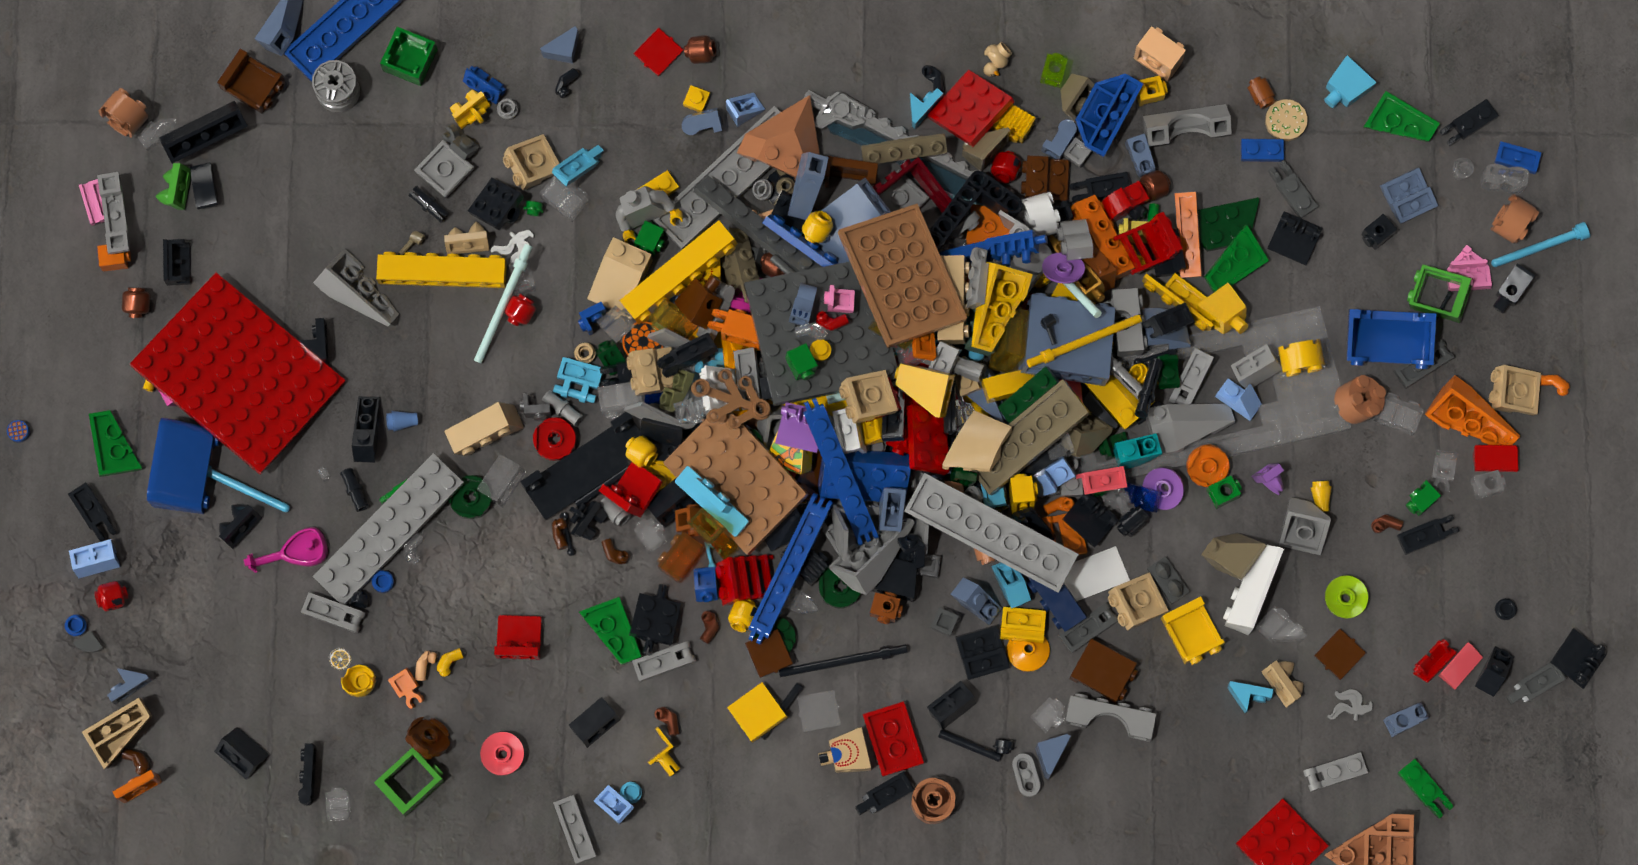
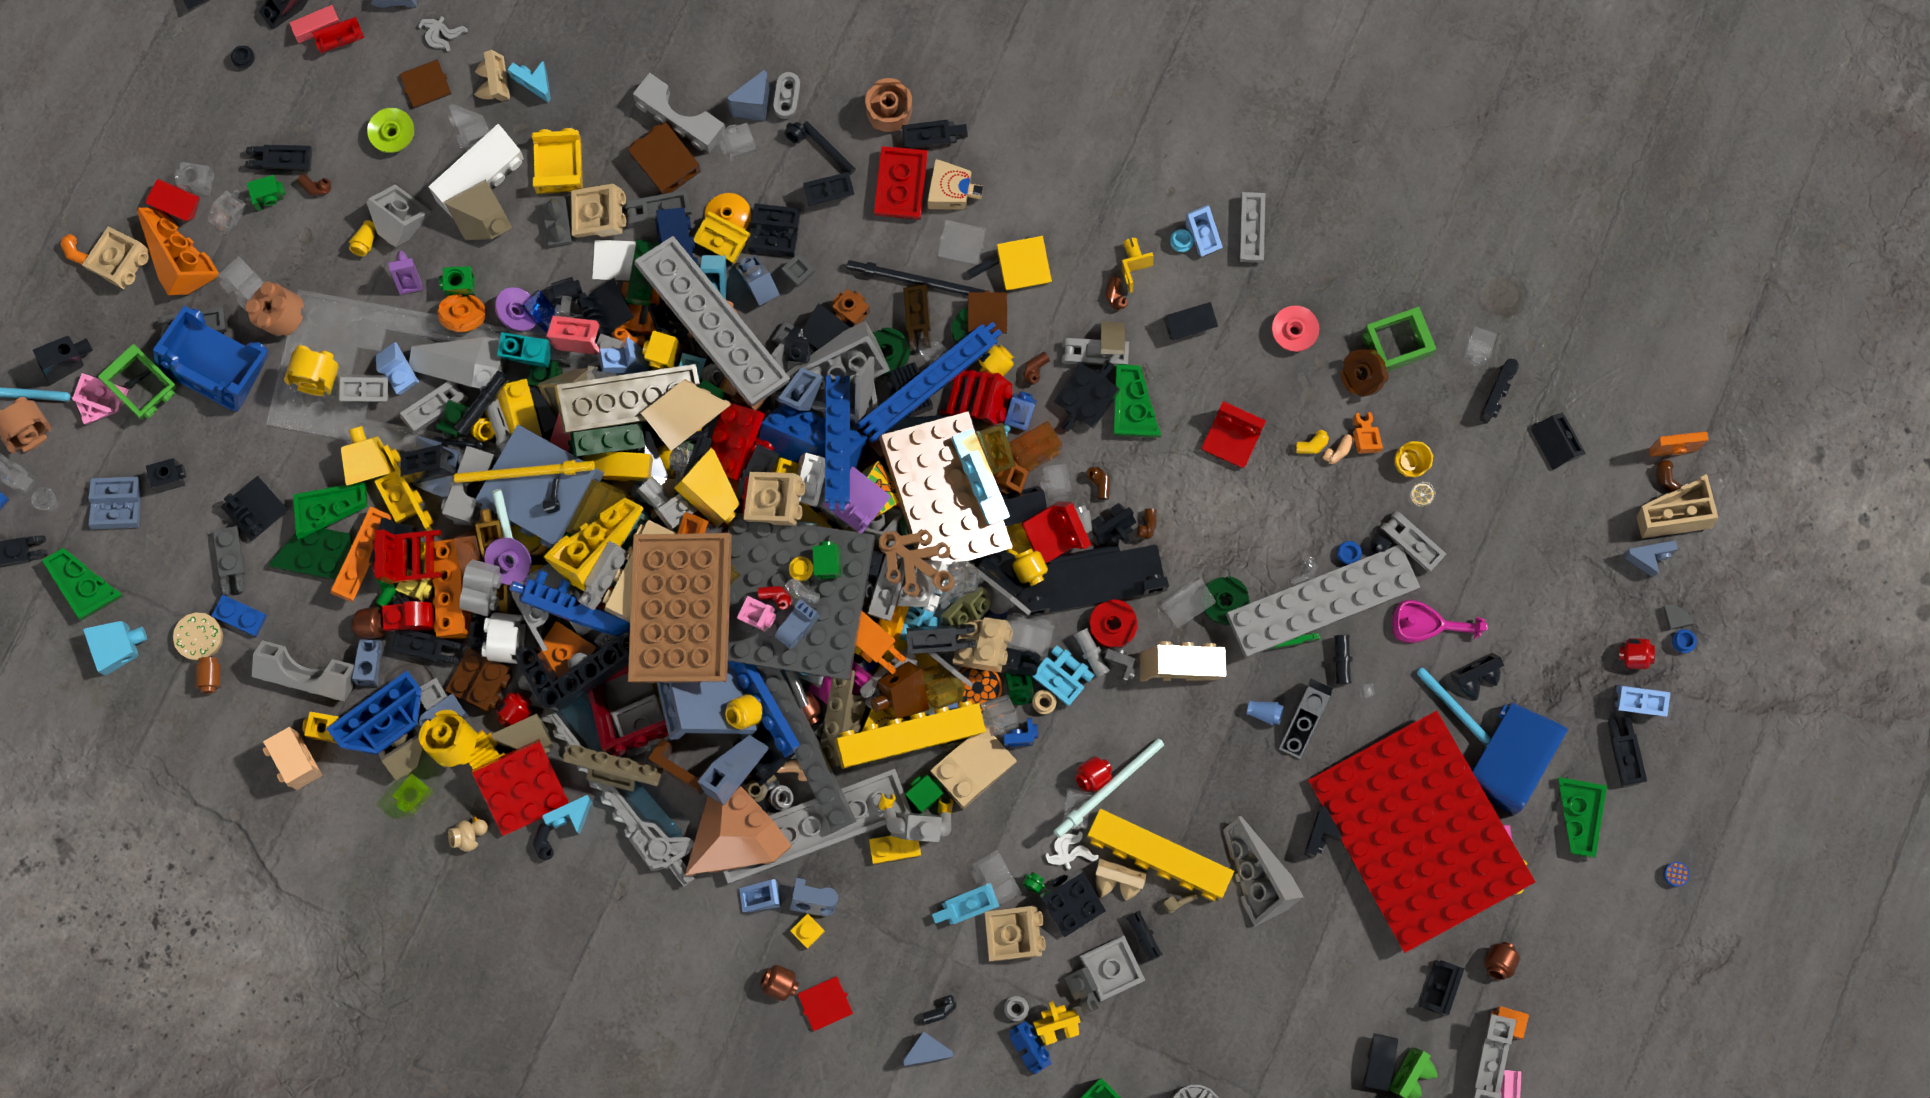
camera: 160 degrees left, 0 degrees up
(571, 551) = (1136, 542): black hinge -> none
(653, 676) = (1112, 337): none -> dark tan slope
(827, 628) = (917, 314): none -> dark brown hinge
(1043, 115) = (448, 738): none -> yellow brick
(1078, 577) = (639, 289): none -> dark green plate

